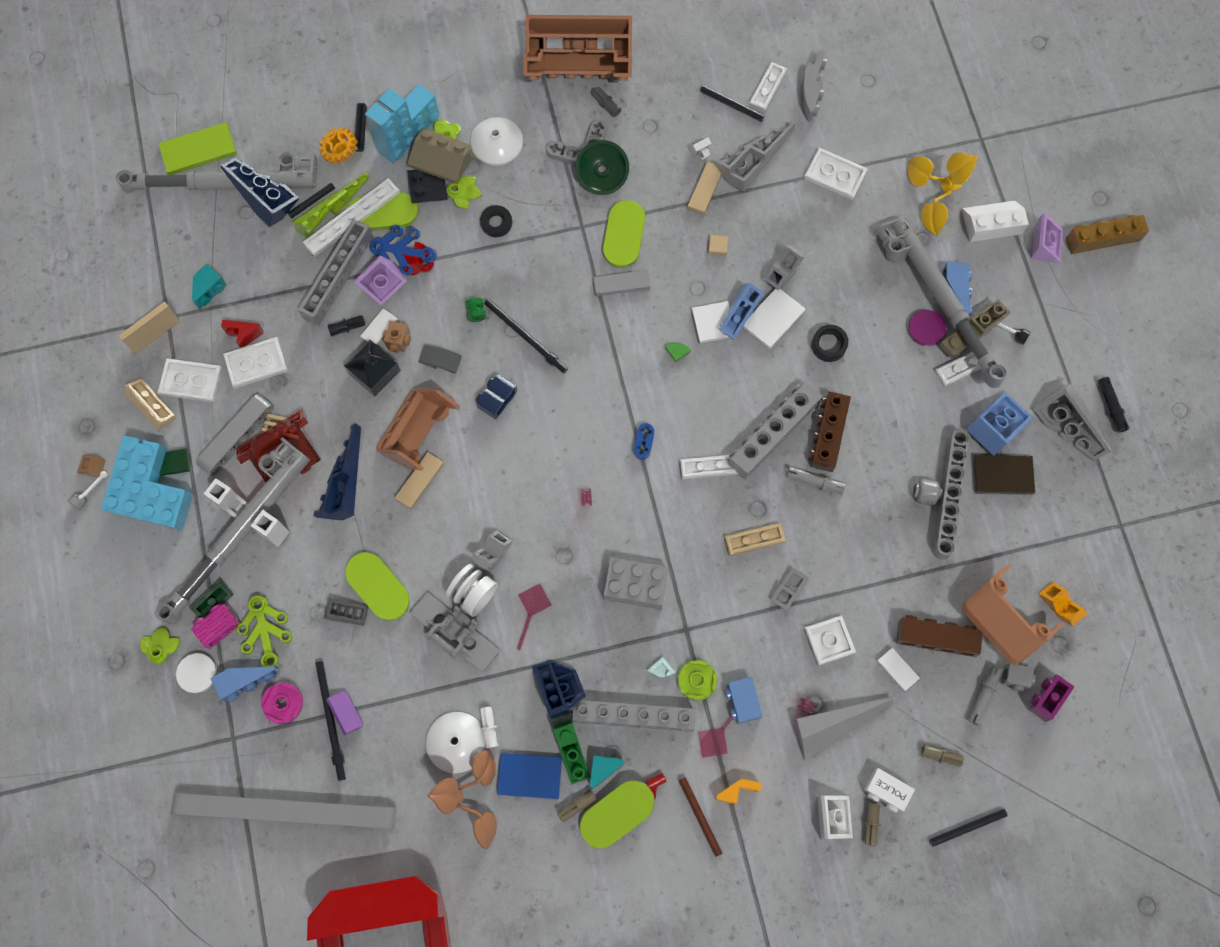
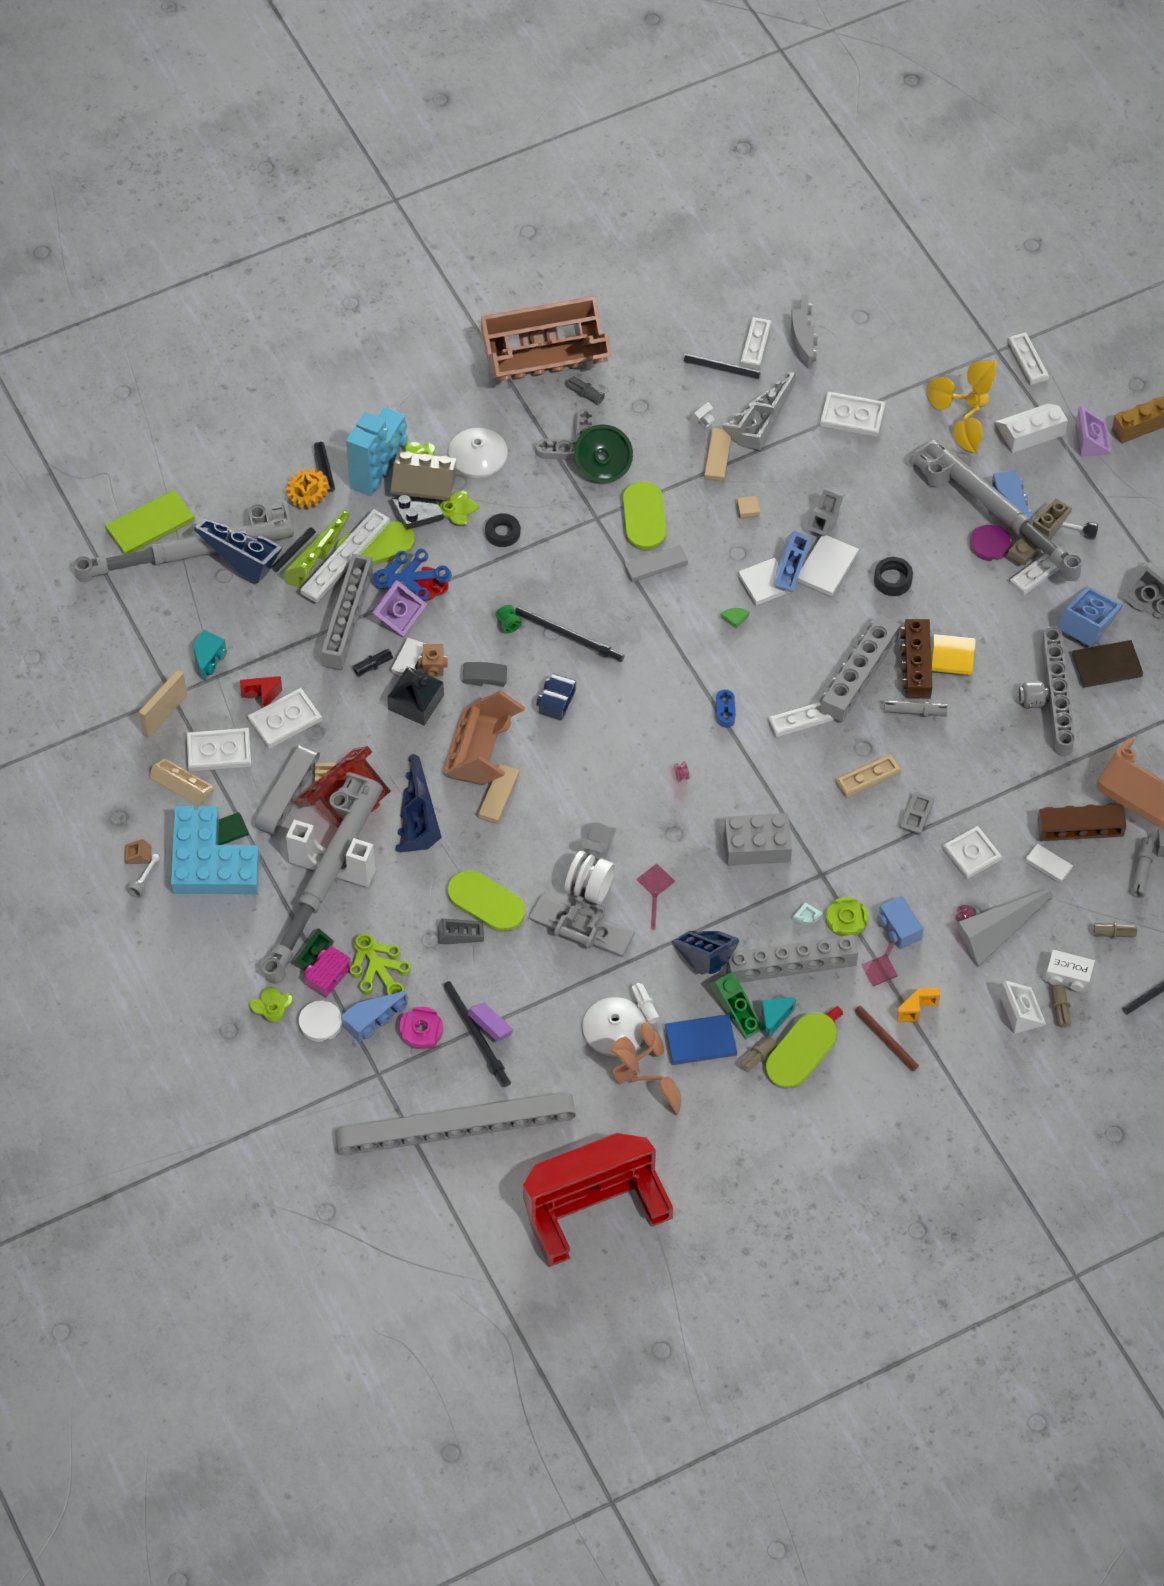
camera: 15 degrees left, 15 degrees down
(864, 434) = (953, 654): none -> yellow slope
(1007, 152) = (1028, 358): none -> white tile

